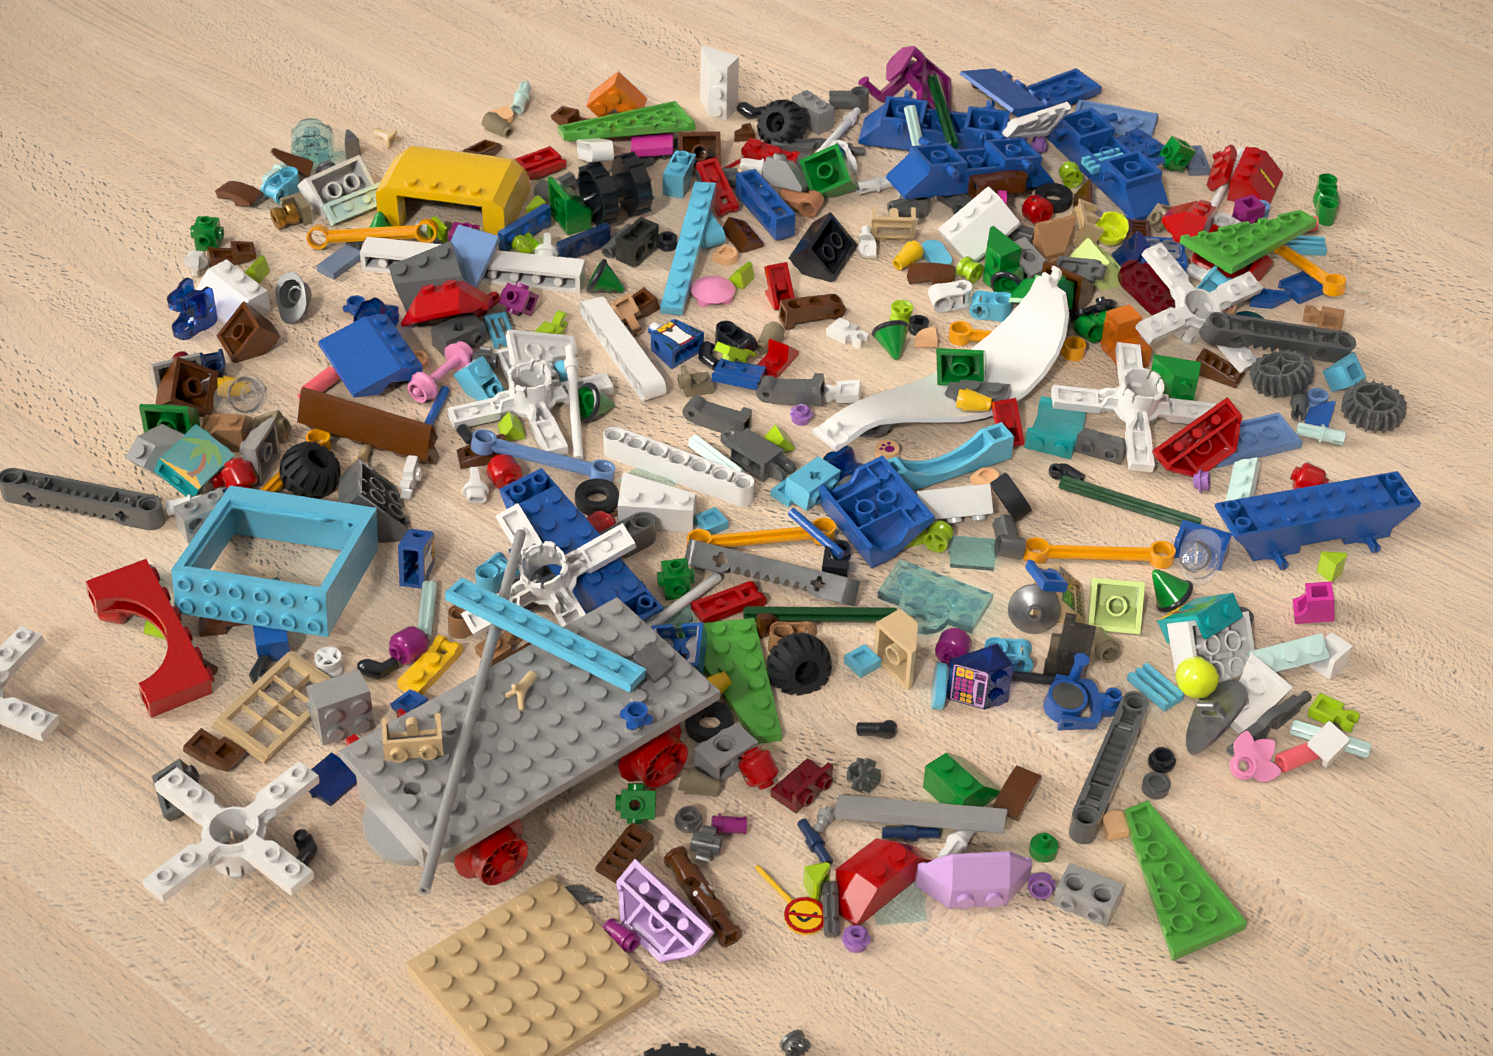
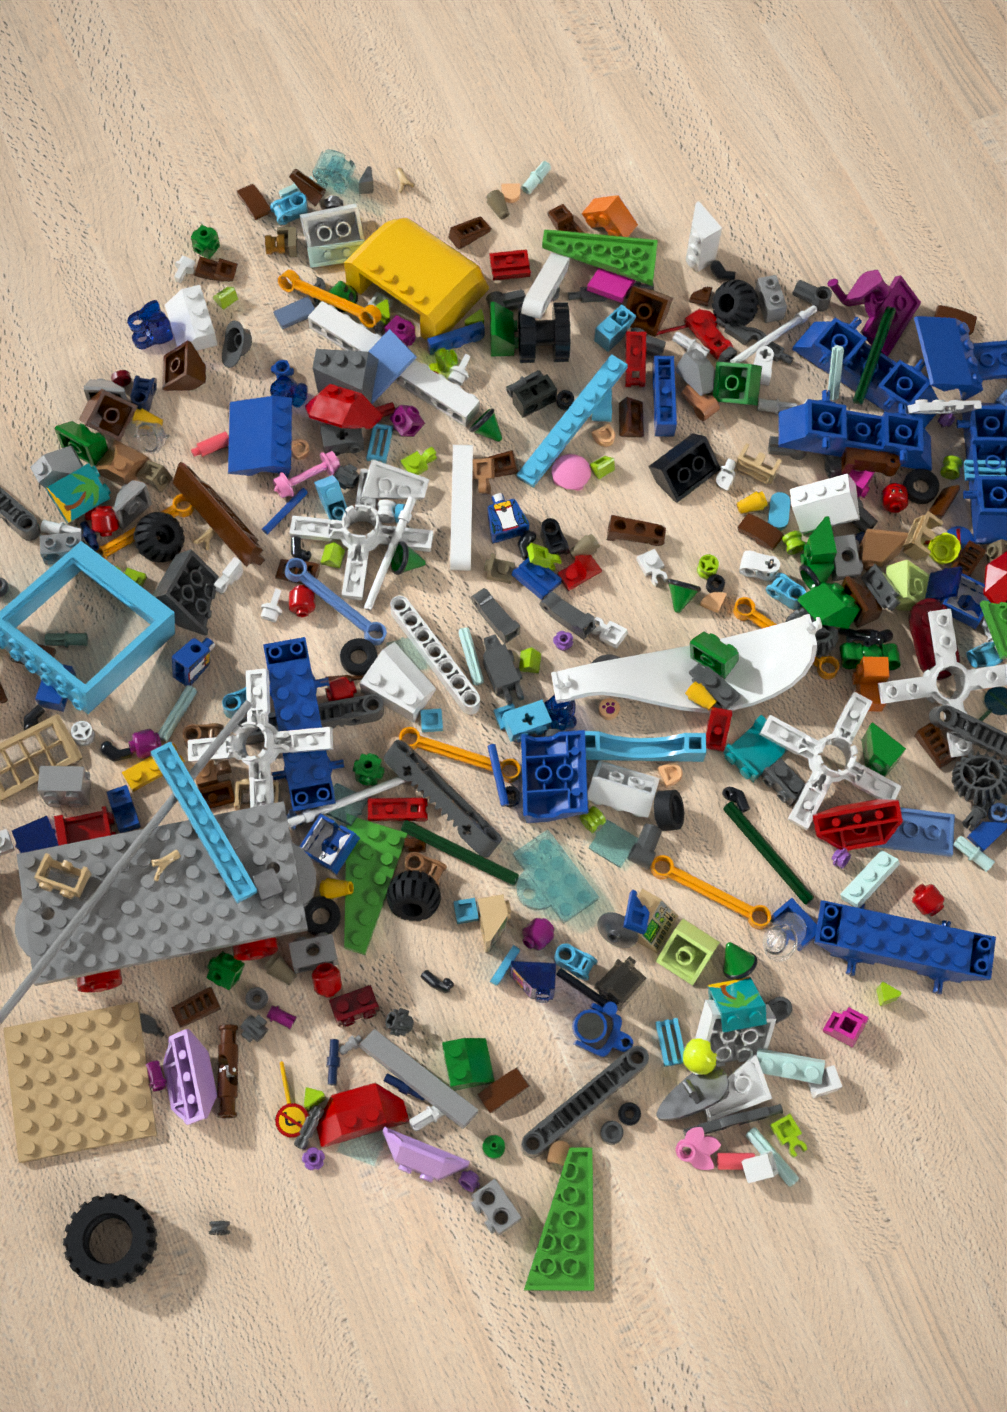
camera: 25 degrees right, 25 degrees up
(584, 242) = (492, 376): dark blue plate -> none
(636, 715) = (225, 923): blue plate -> none
(778, 283) = (623, 495): red slope -> none
(833, 566) = (495, 814): black panel -> none
(1105, 646) = (654, 986): dark tan cone -> none

